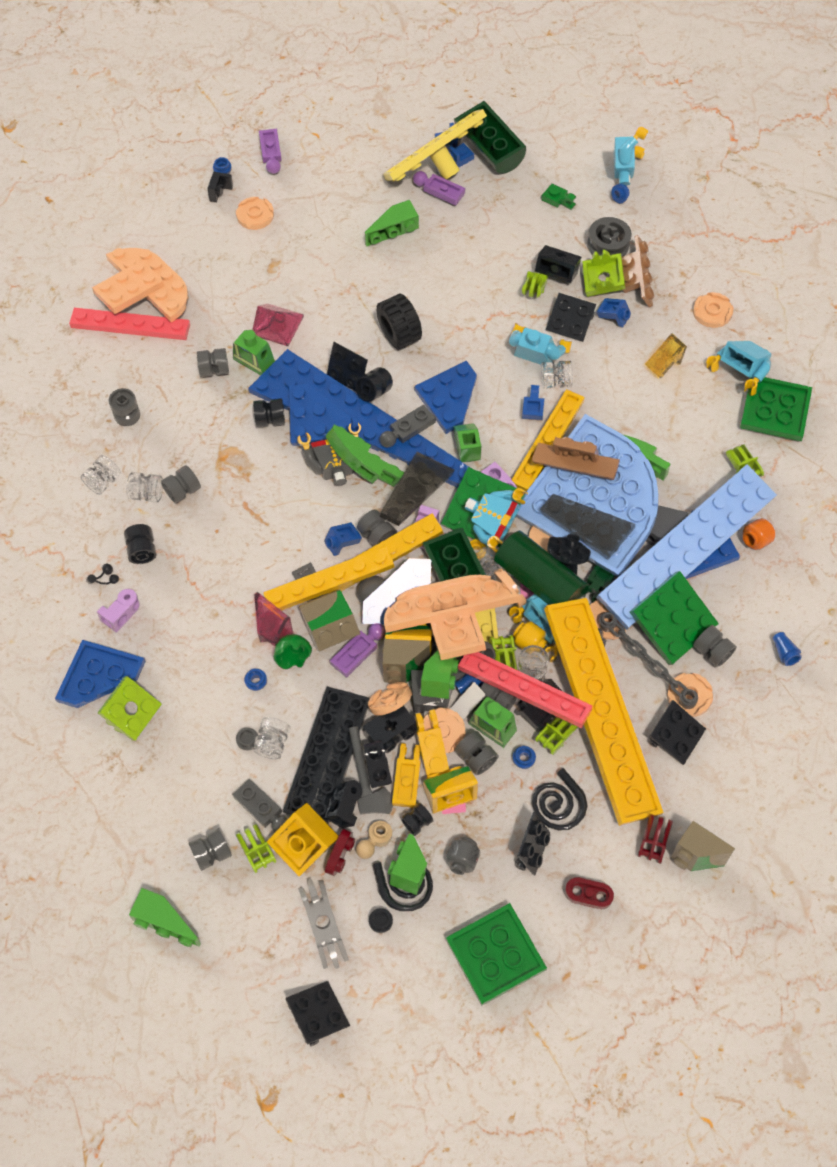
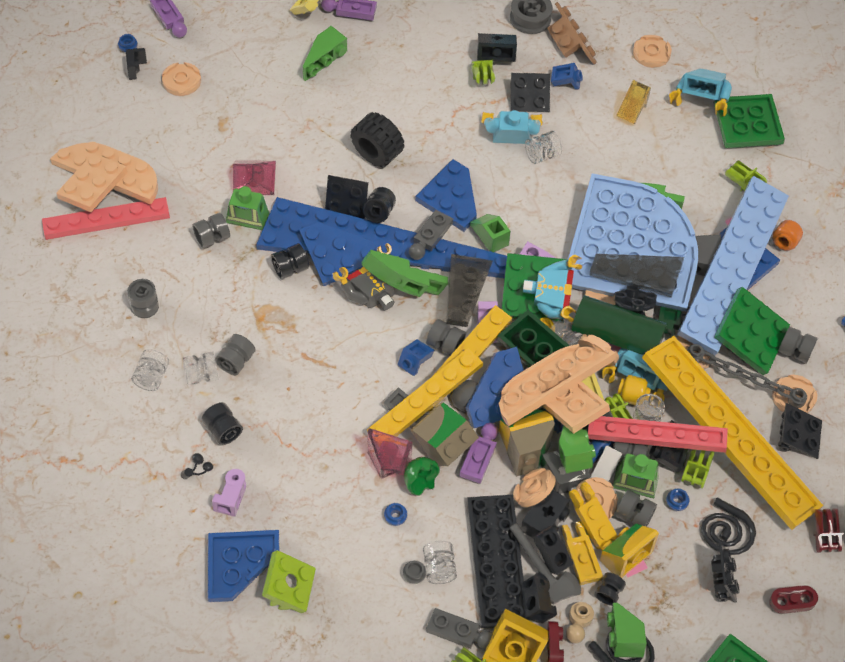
camera: 25 degrees left, 5 degrees down
(463, 855) = (667, 606): dark grey head -> none
(532, 405) = (534, 182): blue plate -> none
(555, 427) = (563, 208): yellow plate -> none
(576, 457) = (603, 214): medium nougat bracket -> none
(603, 264) = (541, 35): lime piece -> none

